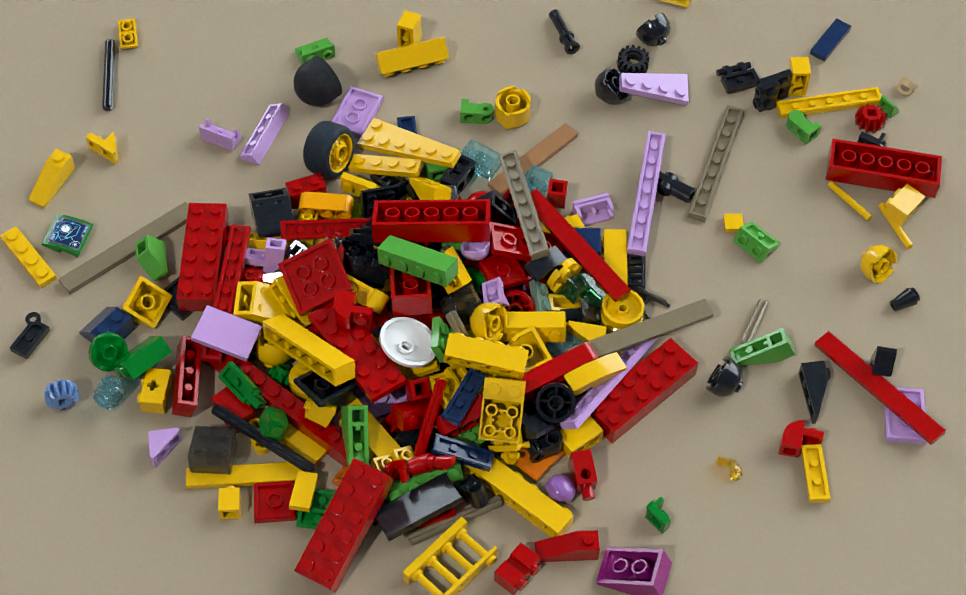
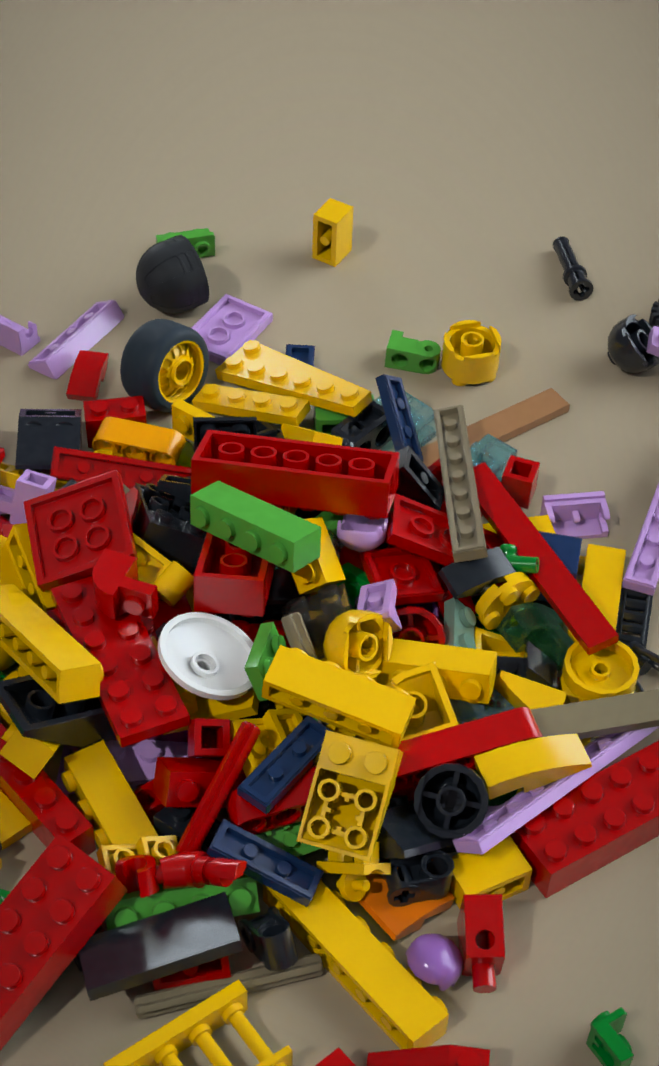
camera: 10 degrees right, 10 degrees down
(279, 160) = (87, 375): none -> red slope
(355, 432) = (82, 794): bright green slope -> none
(411, 55) = (329, 264): yellow brick -> none
(479, 164) = (398, 413): none -> dark blue tile
(568, 253) = (520, 563): none -> green arm

